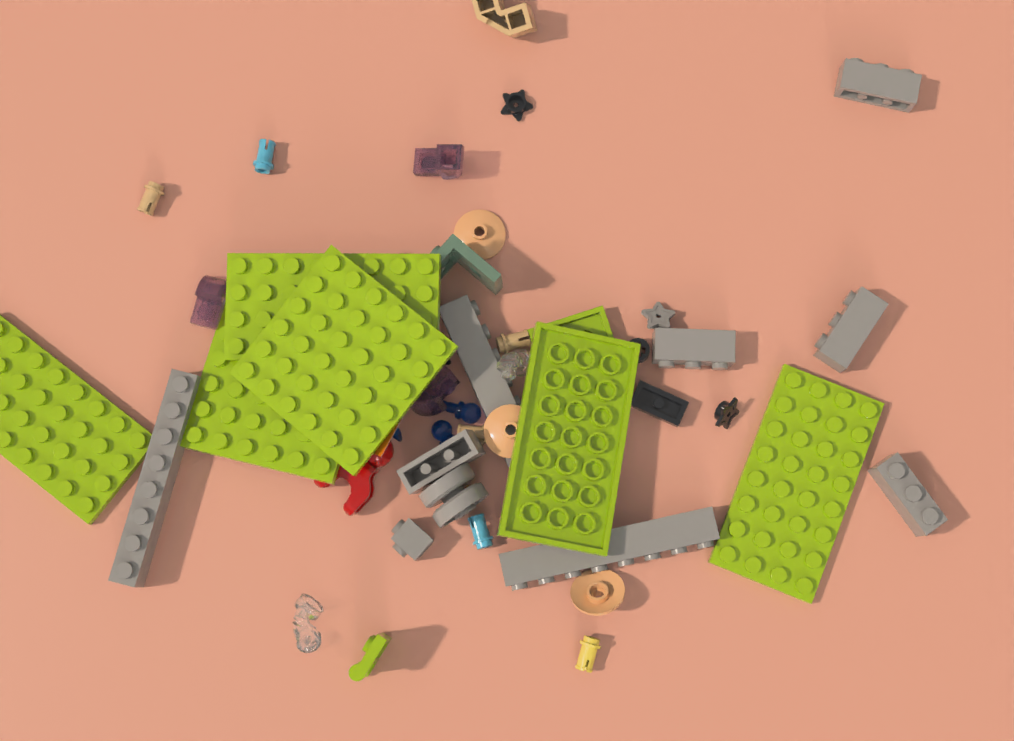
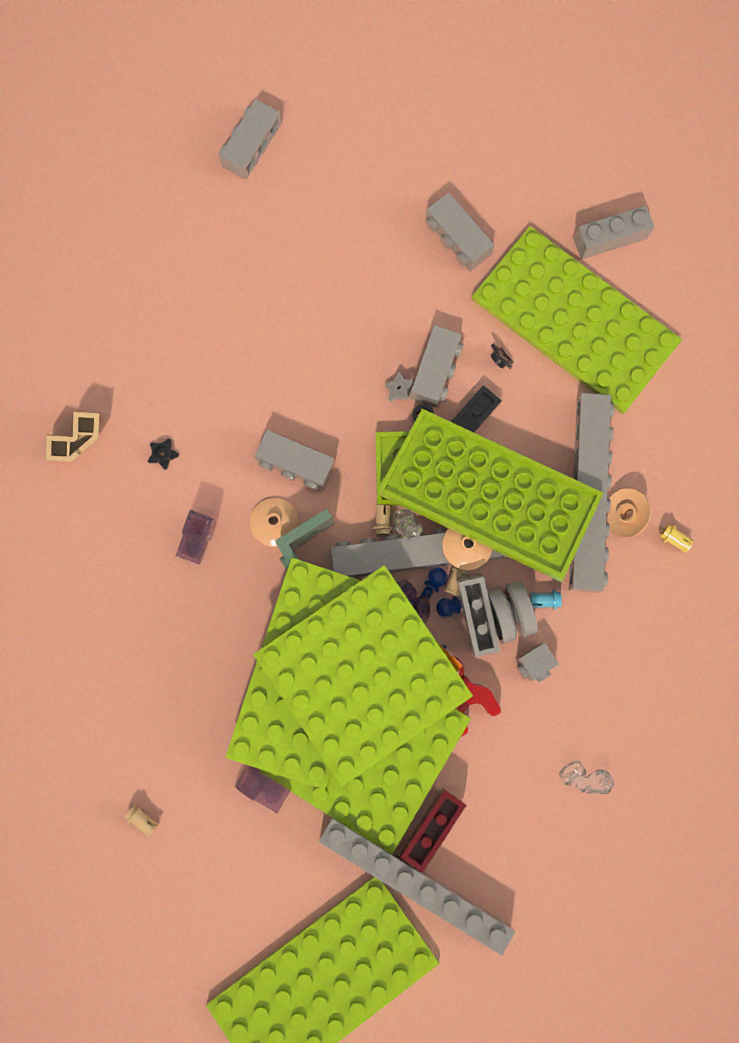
camera: 75 degrees left, 0 degrees up
(214, 478) = (432, 830): none -> dark red brick
(263, 163) = (136, 699): medium azure pin -> none
(374, 648) = (640, 734): lime plate -> none
(546, 234) = (294, 460): none -> light grey brick

